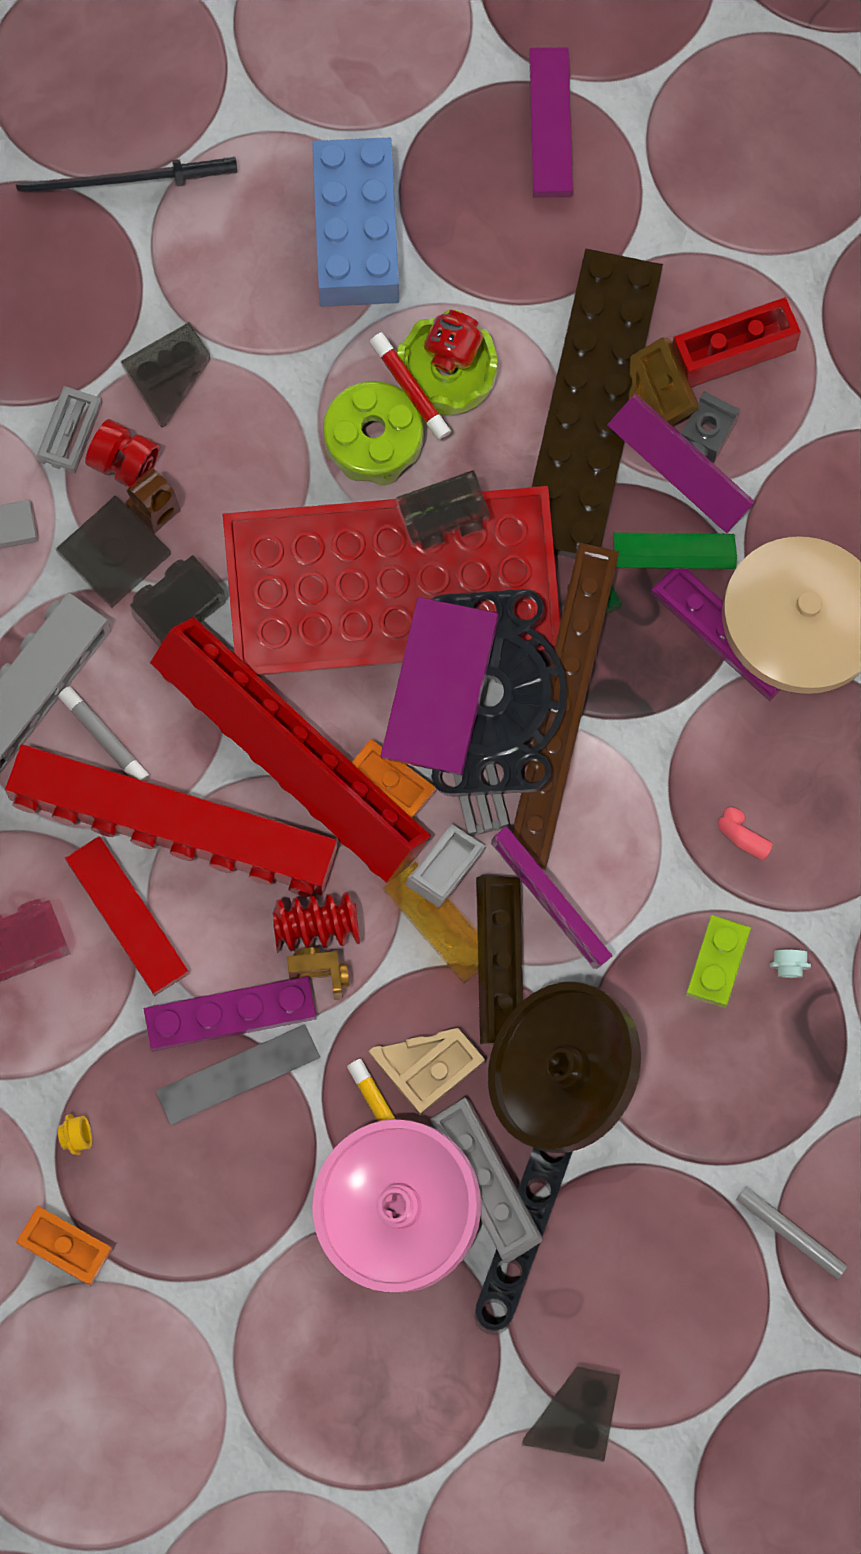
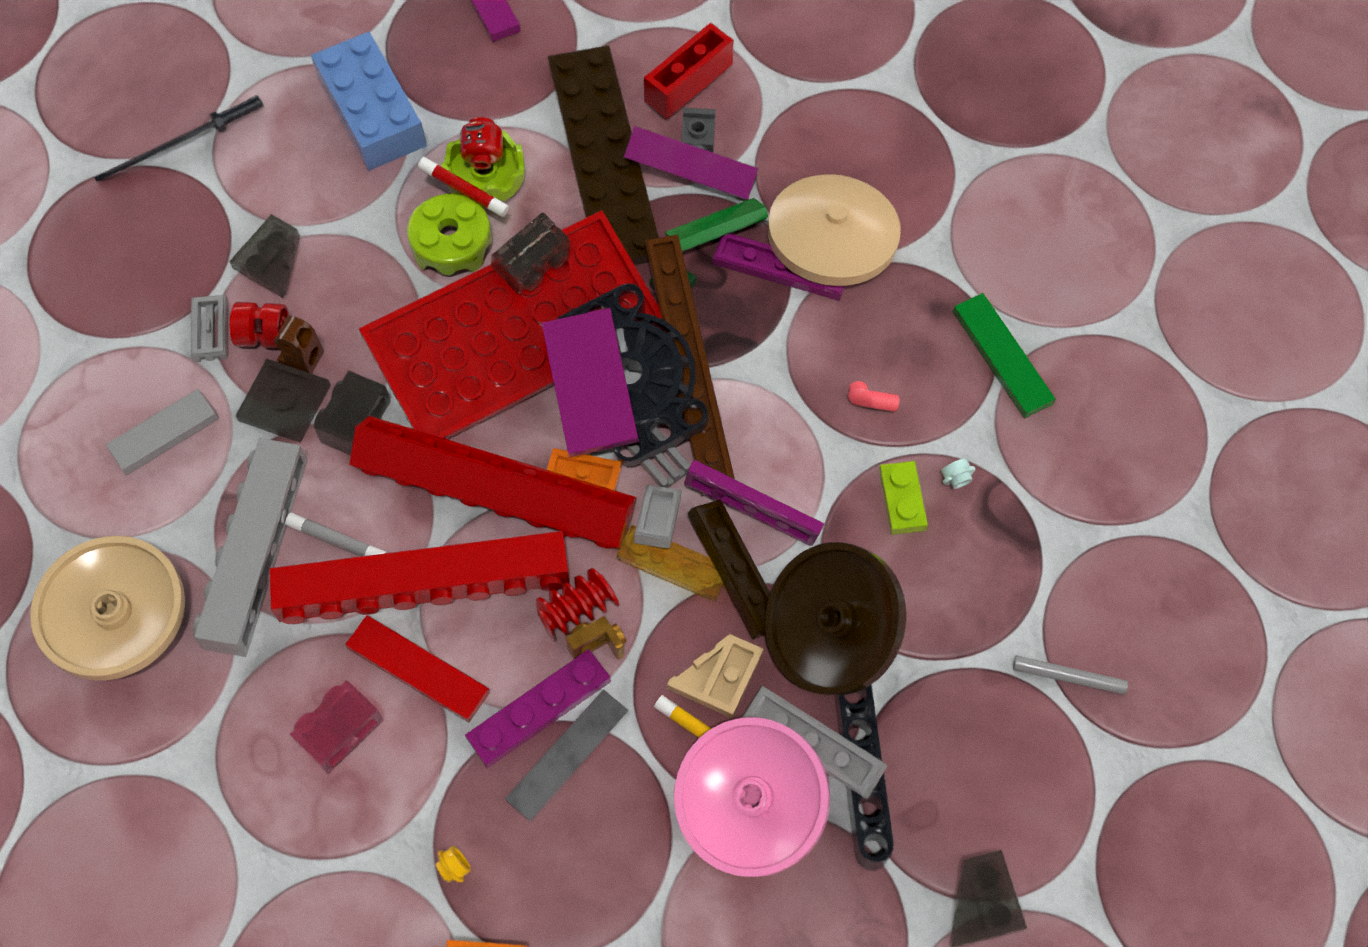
camera: 25 degrees left, 10 degrees down
(662, 381) = (649, 112): pearl gold wing -> none

